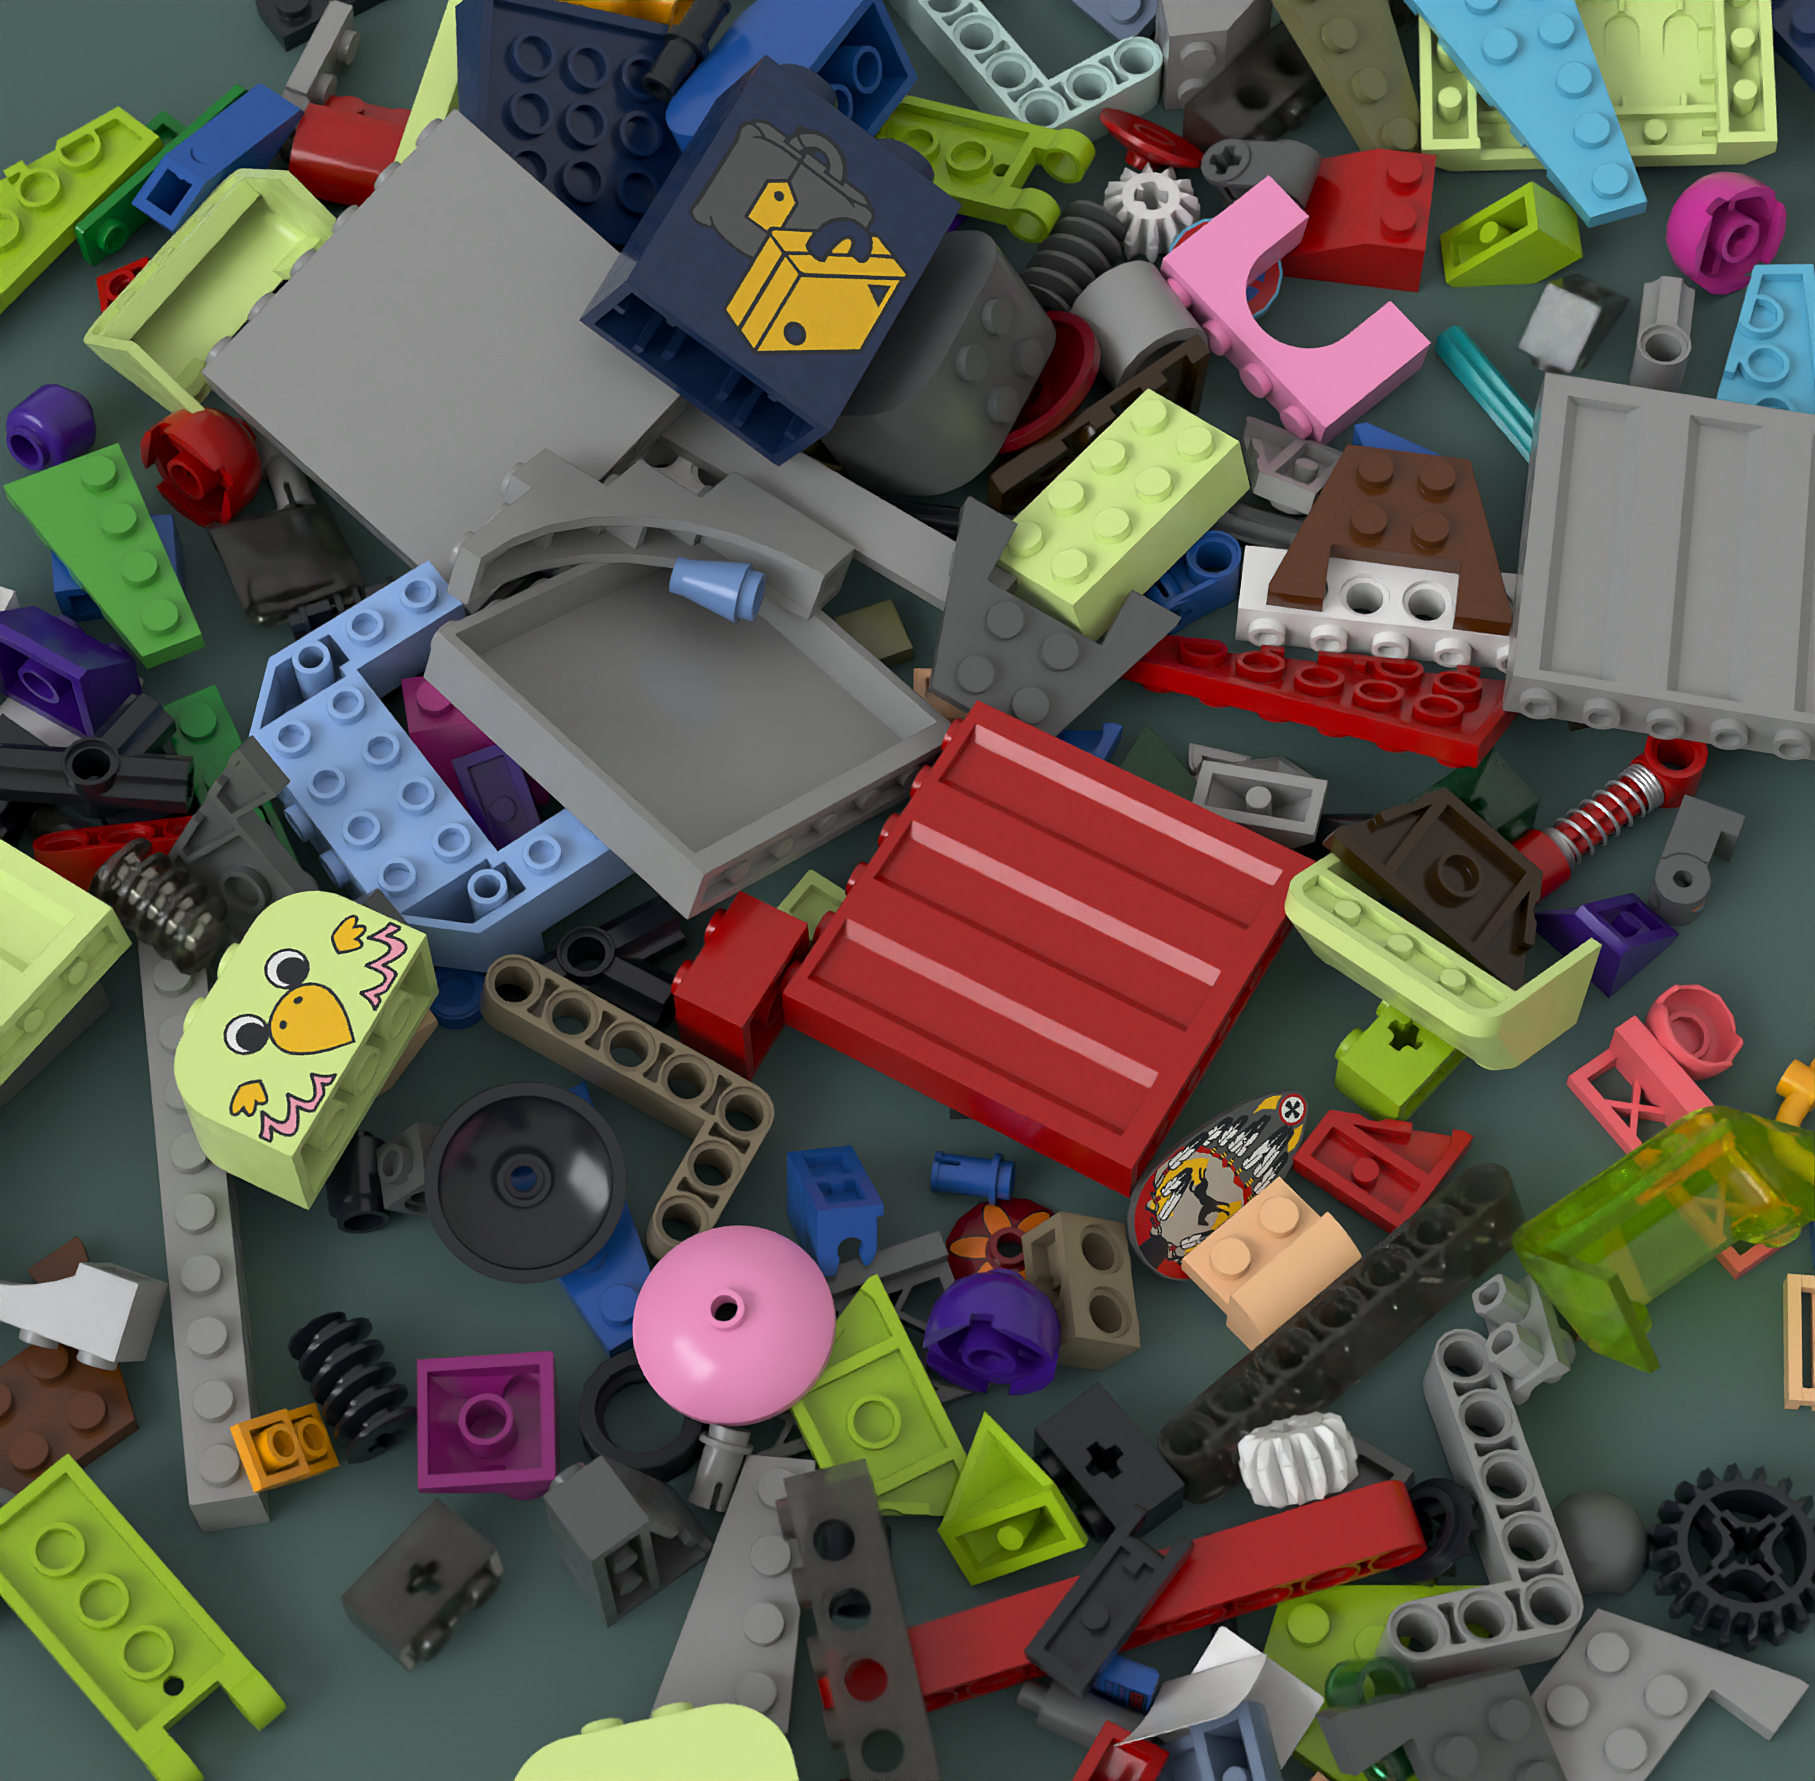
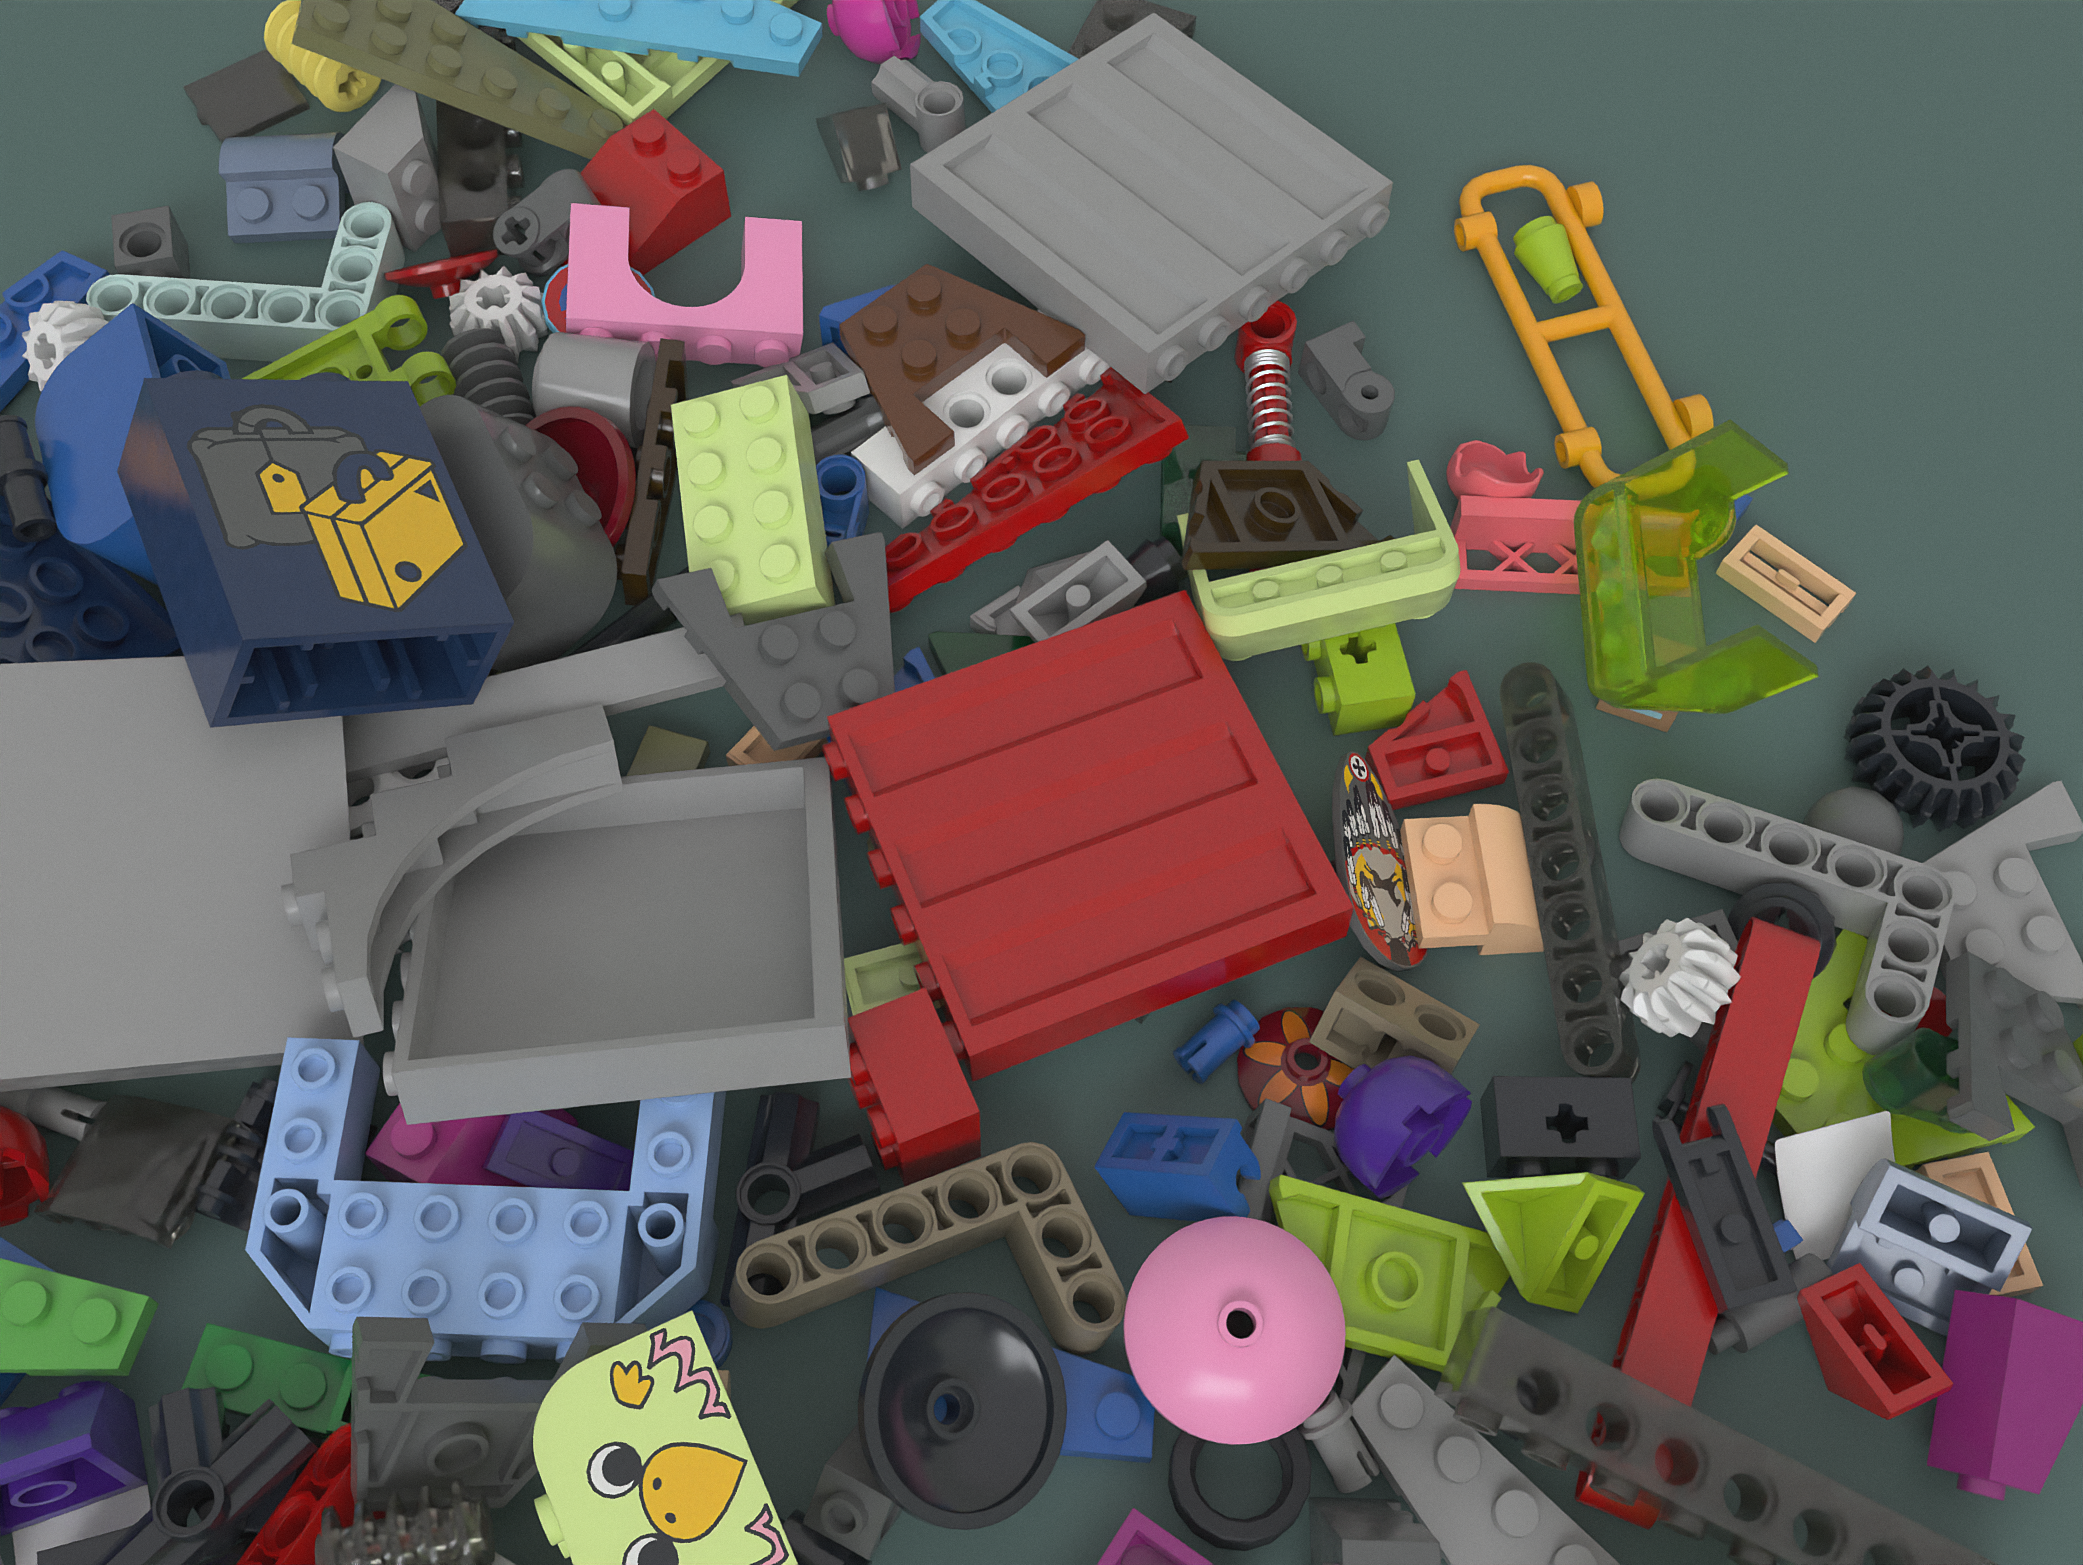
camera: 55 degrees left, 0 degrees up
(720, 586) = (542, 826): medium blue cone -> none
(1199, 1697) = (1843, 1209): white sticker -> none
(1487, 387) = (872, 230): teal axle -> none
(1512, 241) = (758, 127): lime slope -> none
(1523, 1334) = (1656, 748): light grey hips -> none
(1623, 925) = (1372, 472): dark purple slope -> none

